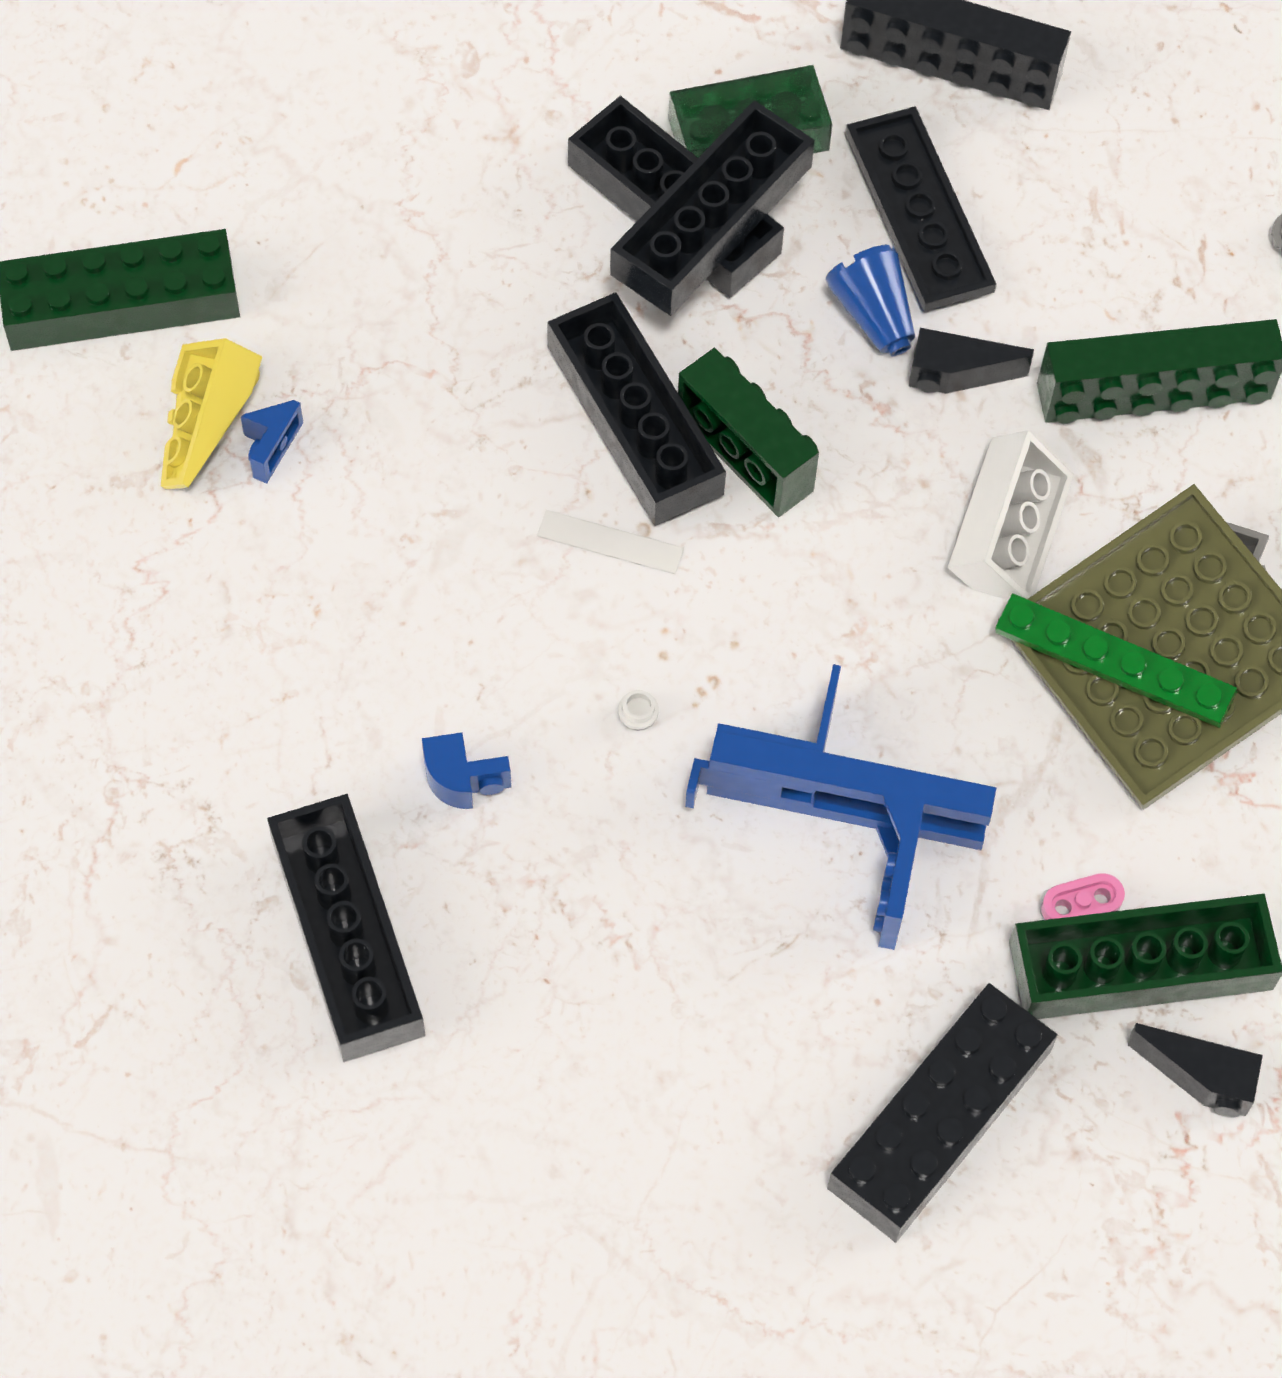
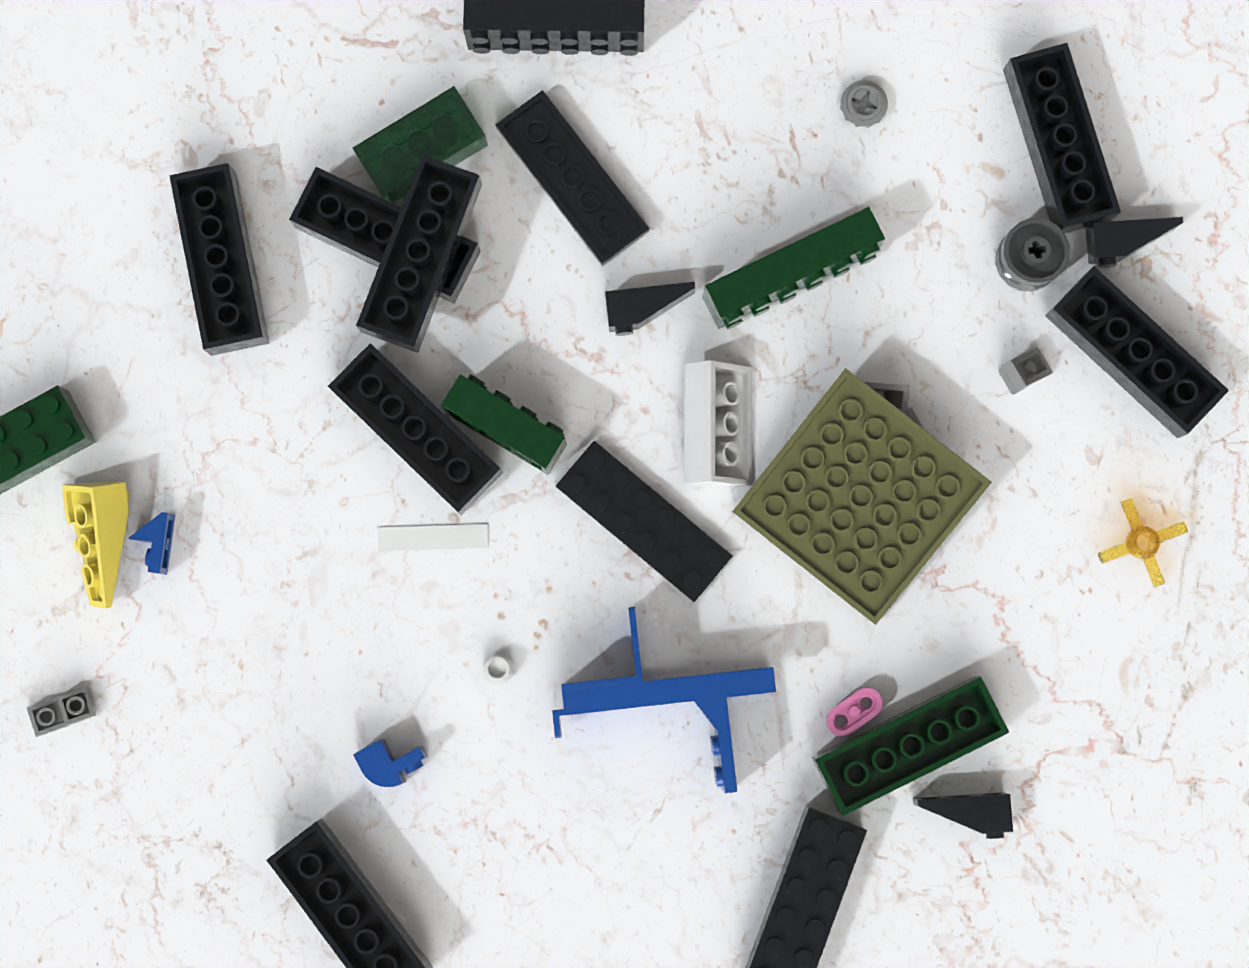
camera: 15 degrees left, 20 degrees up
(79, 591) = (61, 712): none -> light grey slope
(467, 164) = (219, 259): none -> black brick
(876, 298) = (565, 275): blue cone -> none
(882, 603) = (644, 521): none -> black plate
(1116, 660) = (826, 523): green plate -> none

